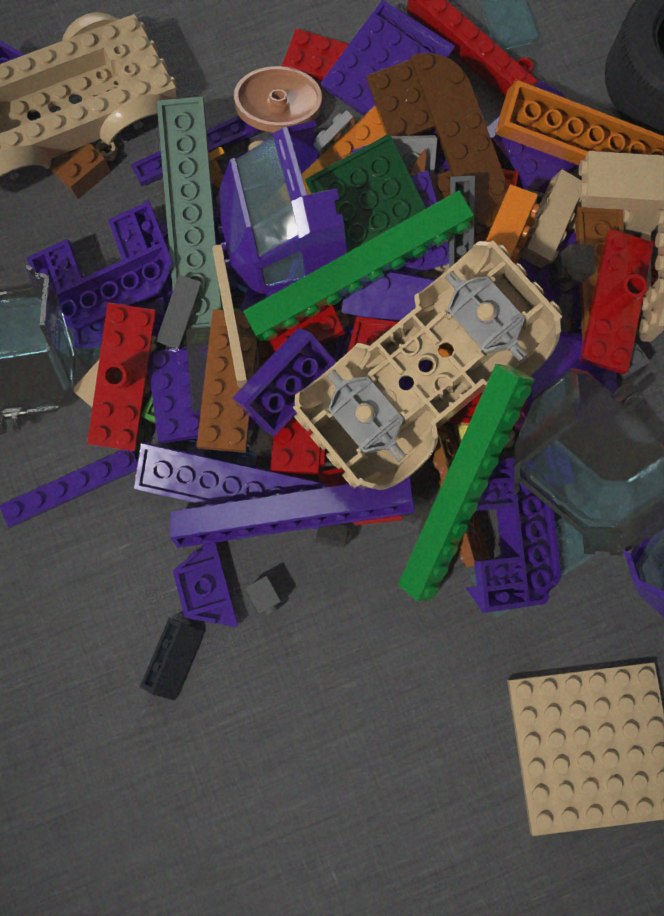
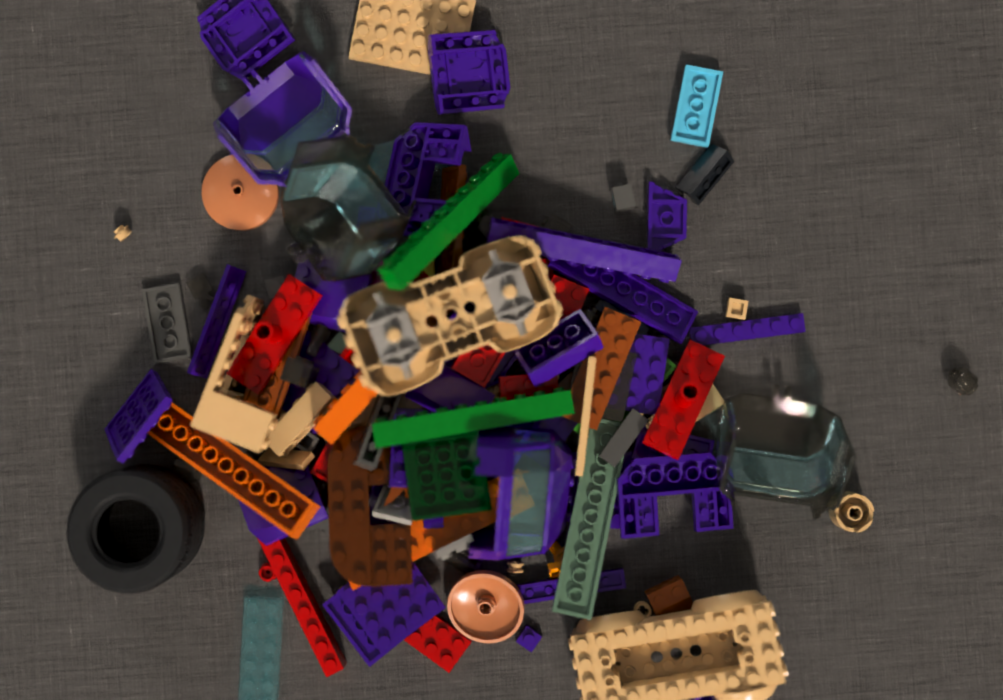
camera: 165 degrees left, 10 degrees up
(88, 506) = (736, 308): none -> tan plate
(206, 742) = (696, 106): none -> medium azure plate
(221, 87) = (528, 638): none -> dark purple plate
(502, 690) = (468, 71): none -> dark purple wedge
(538, 177) = (295, 459): none -> tan tile

